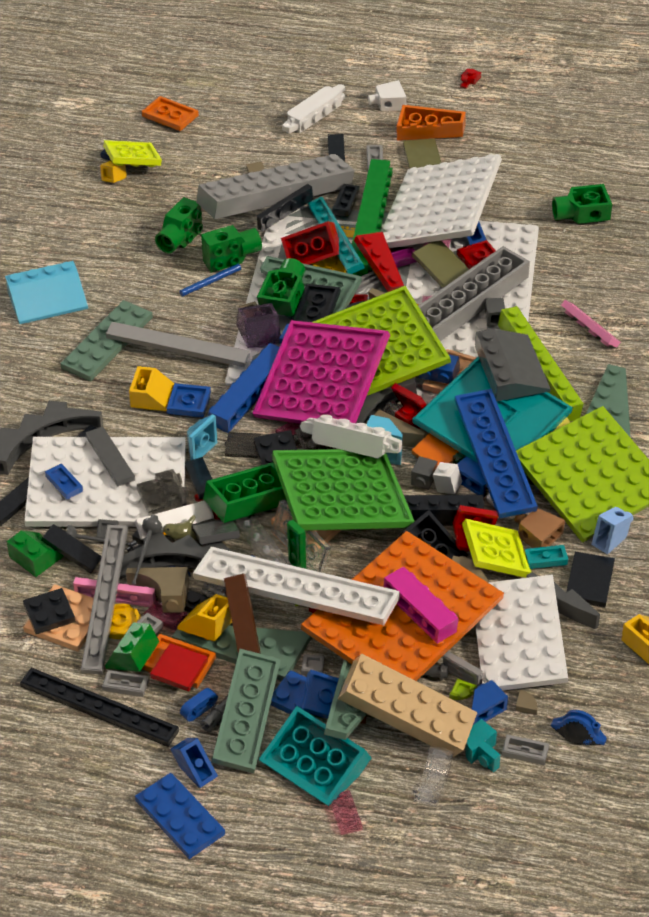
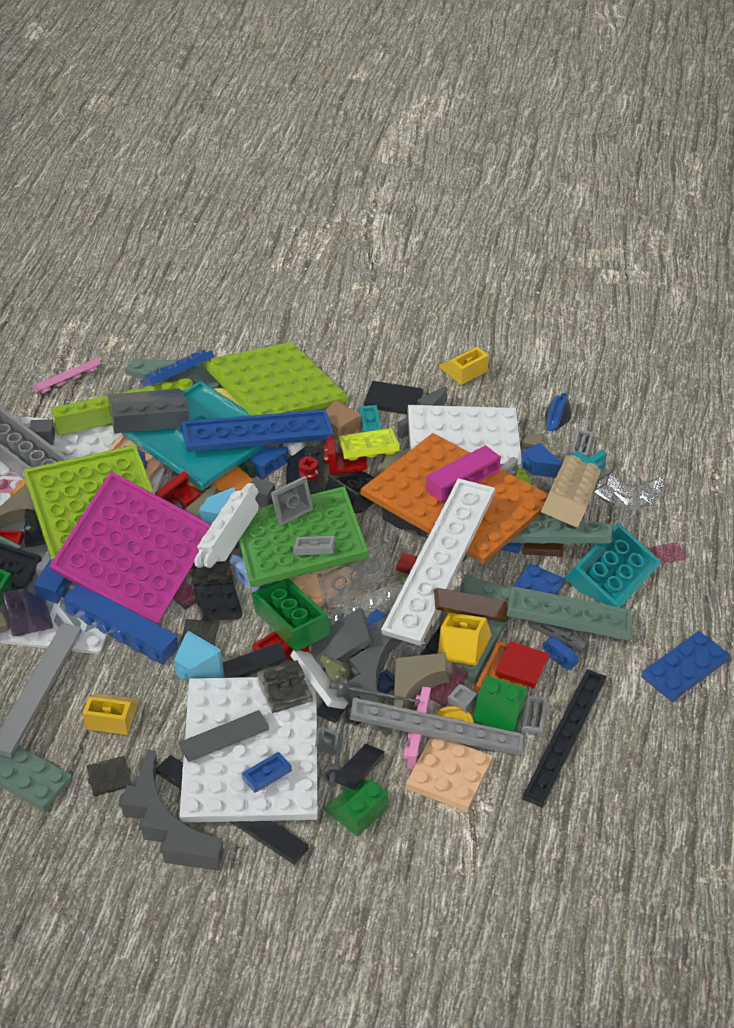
camera: 90 degrees left, 0 degrees up
(49, 611) = (452, 778): black plate -> none
(91, 399) = (108, 775): none -> clear smoke piece
(188, 400) = (128, 678): blue plate -> none
(194, 761) = (627, 654): blue slope -> none
(296, 544) = (375, 568): green tile -> none
(311, 498) = (314, 545): none -> light grey tile
(312, 662) = (501, 575): light grey tile -> none
(319, 693) = (547, 559): blue plate -> none
(377, 473) = (292, 500): none -> light grey slope
(436, 490) = (308, 468): none -> red wheel
(447, 478) = (273, 472): white brick -> none
(594, 390) = (172, 369): none -> blue plate
(611, 529) = (344, 374): light blue torso -> none

